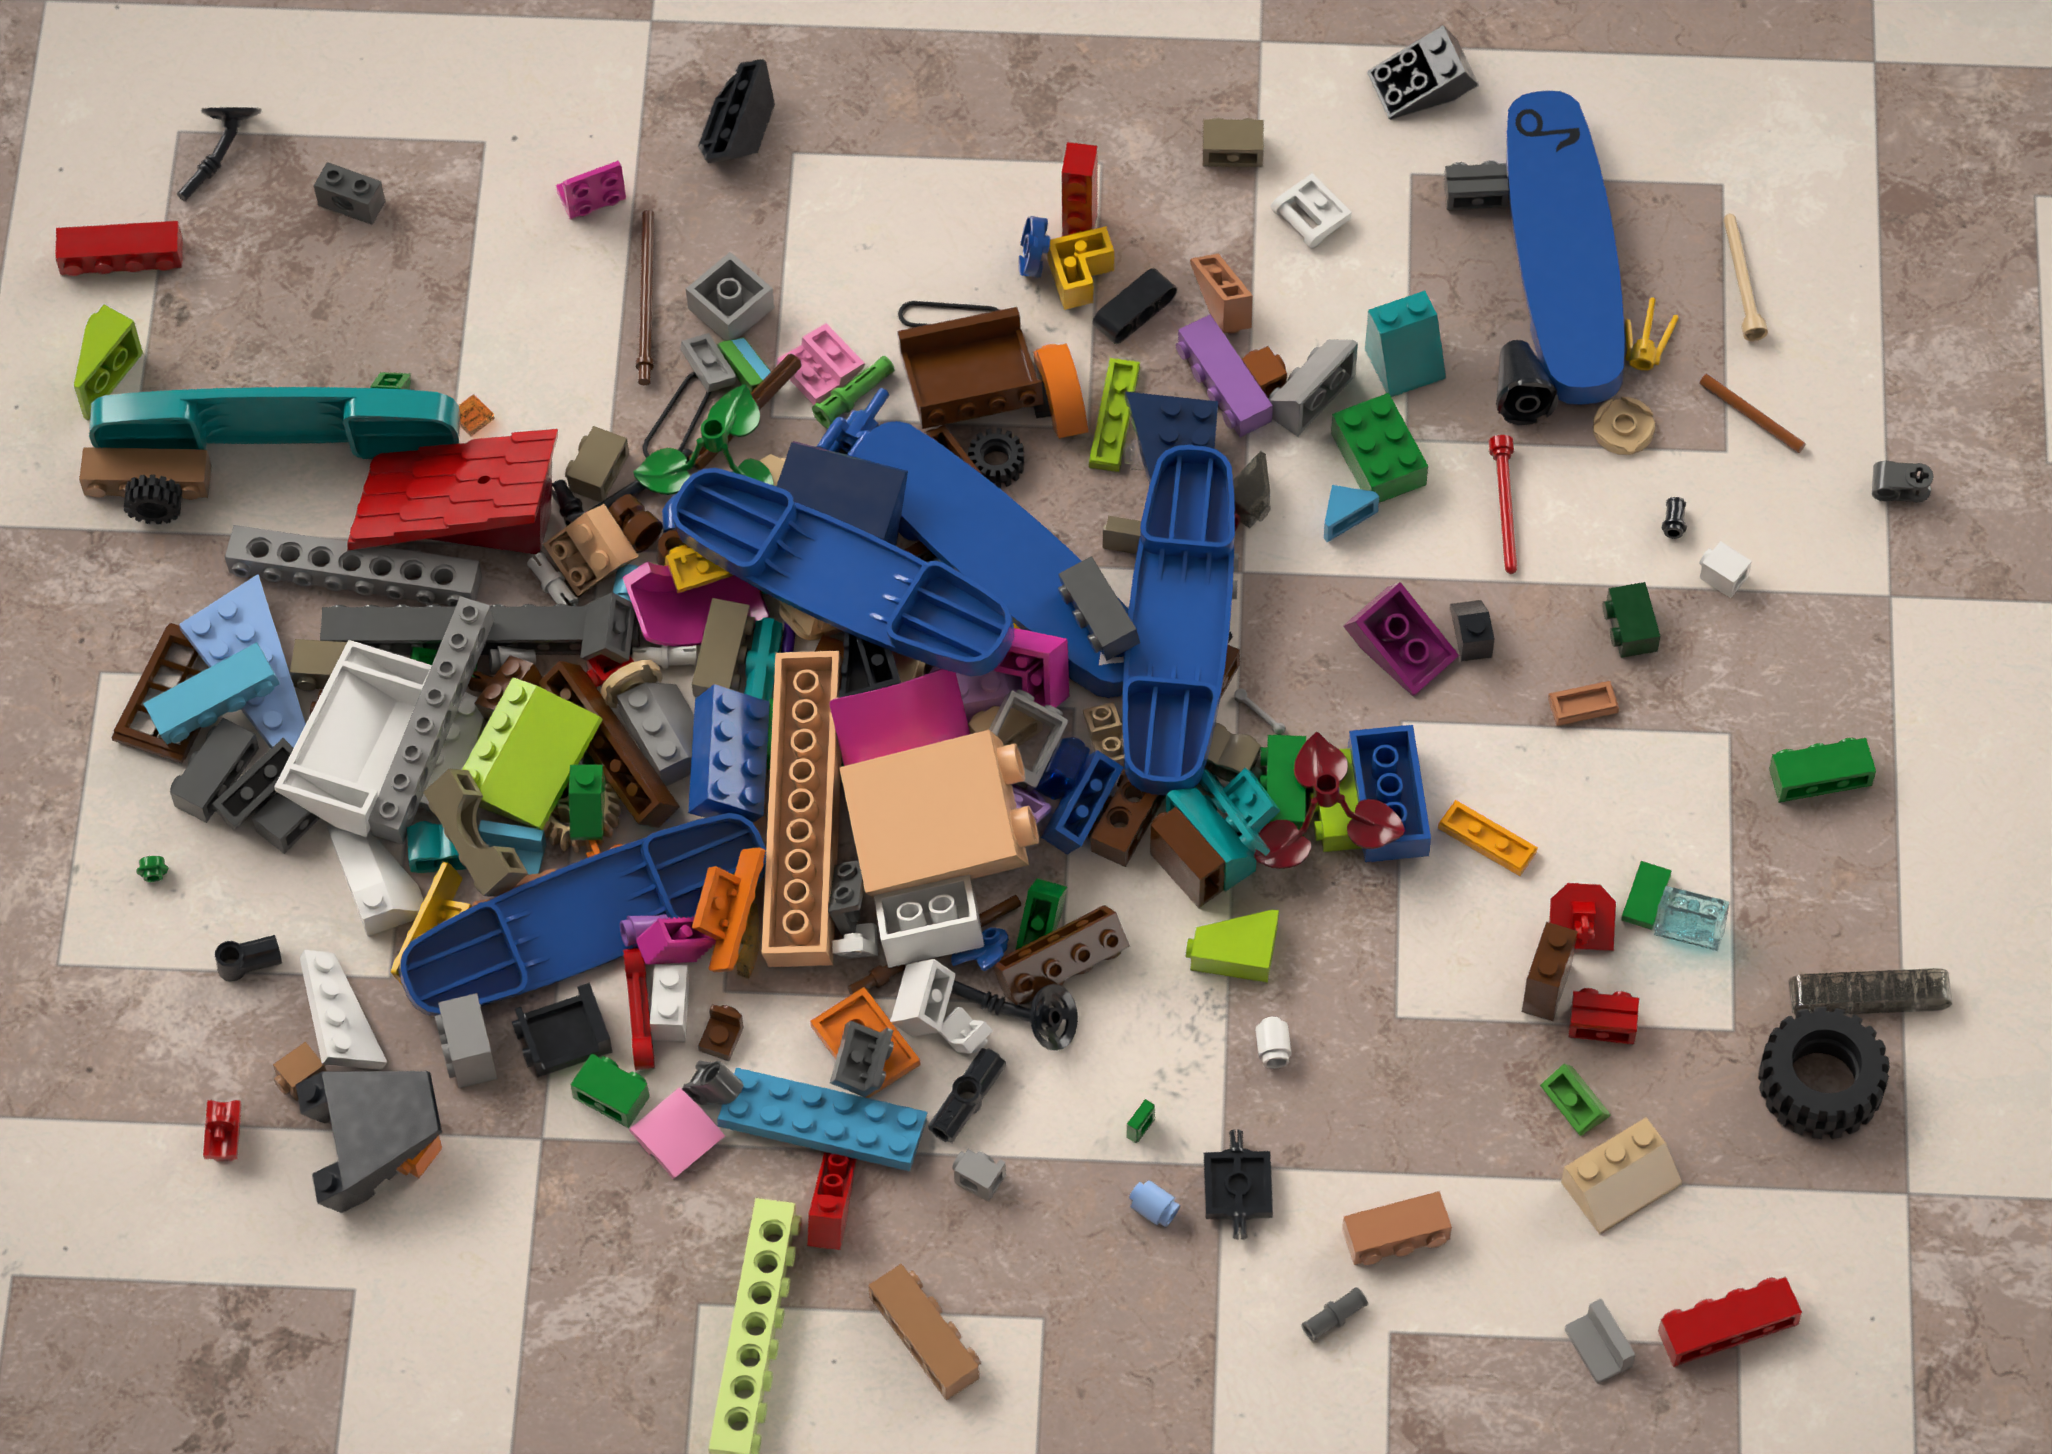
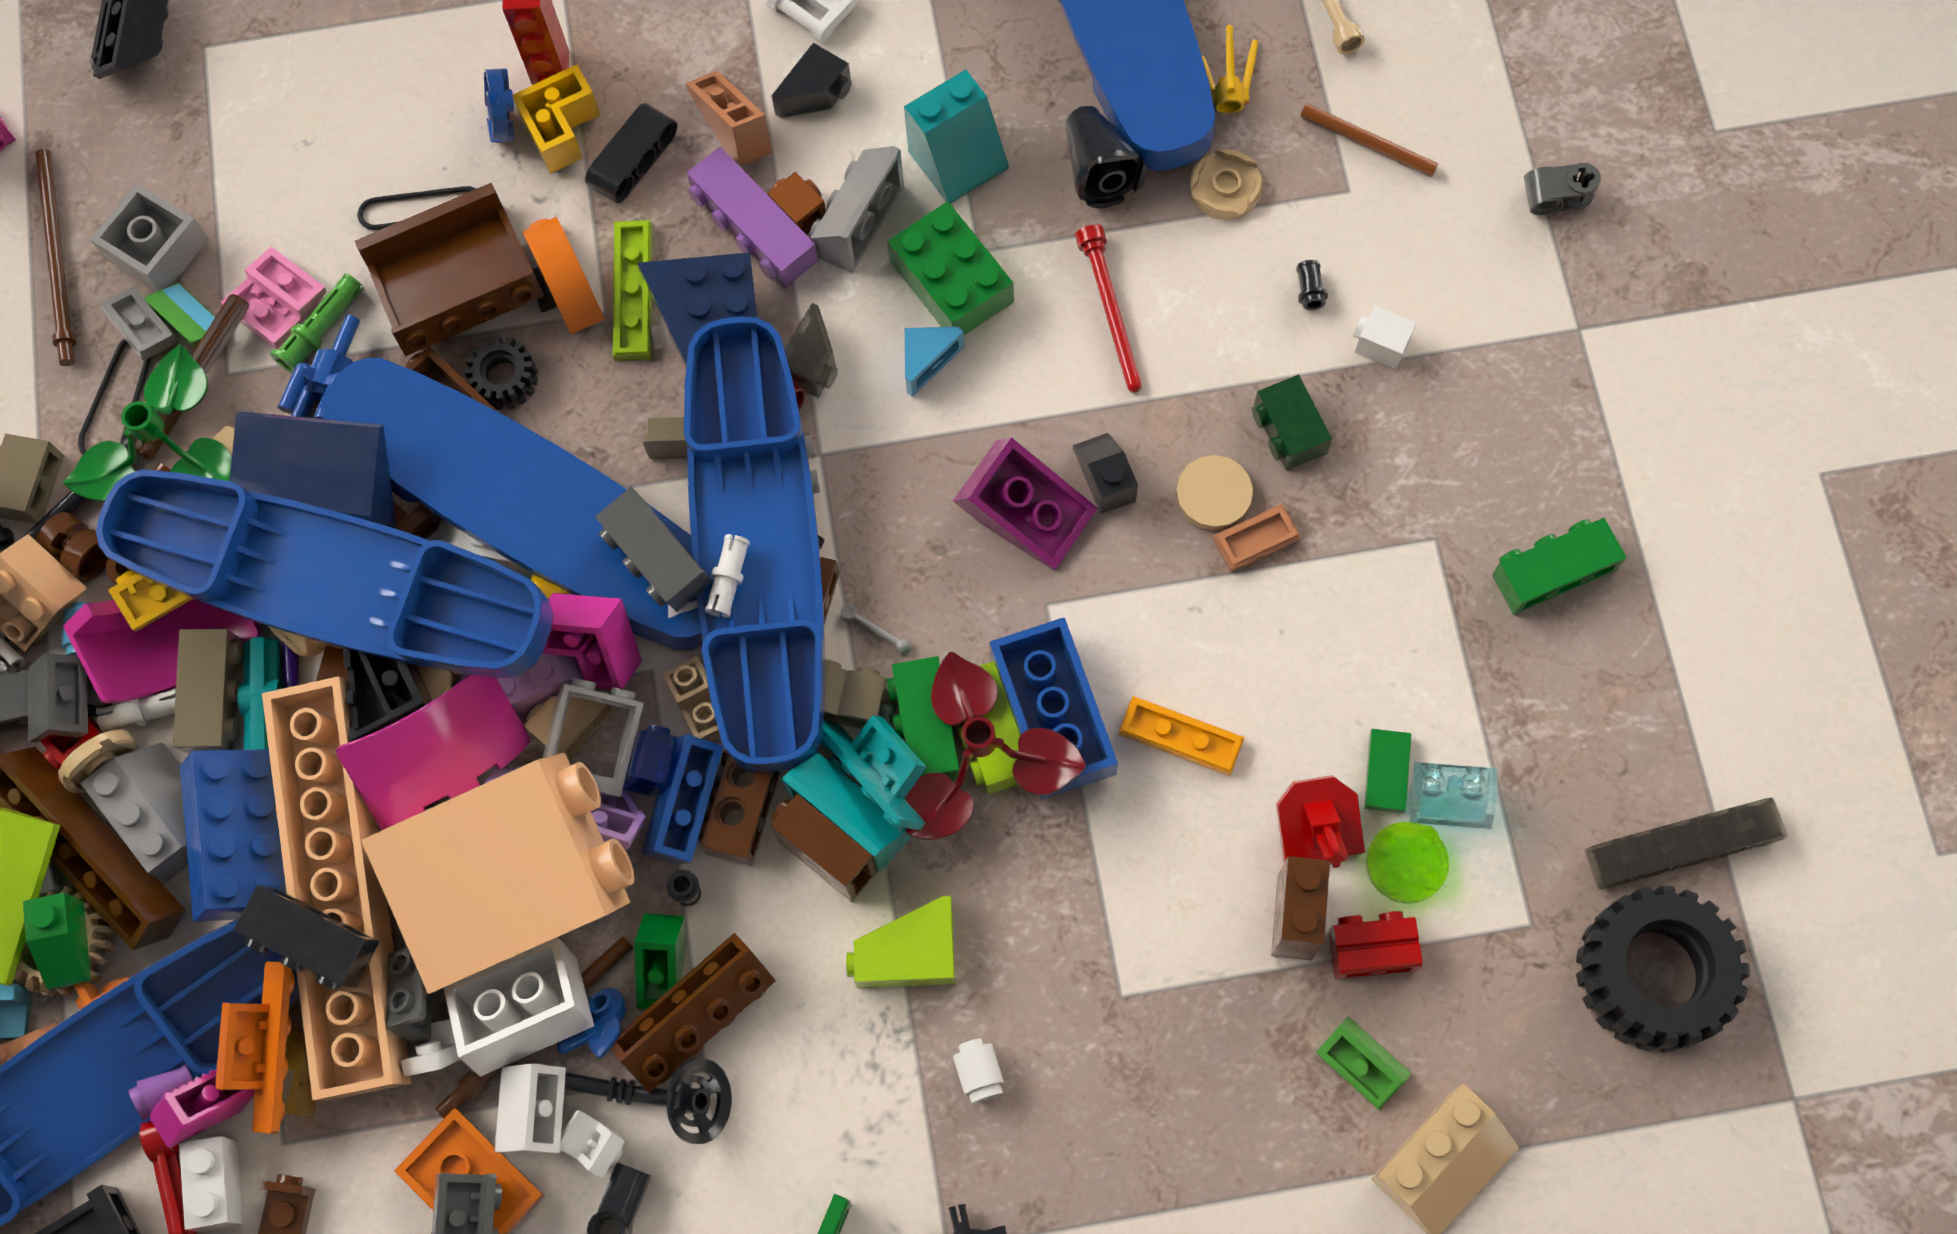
camera: 10 degrees left, 10 degrees up
(782, 831) = (305, 937): none -> black brick
(1071, 865) = (678, 881): none -> black pin
(1152, 639) = (727, 576): none -> white pin
(1296, 279) = (812, 84): none -> black slope
(1557, 662) = (1214, 492): none -> tan tile
(1645, 964) = (1407, 862): none -> clear neon green tile

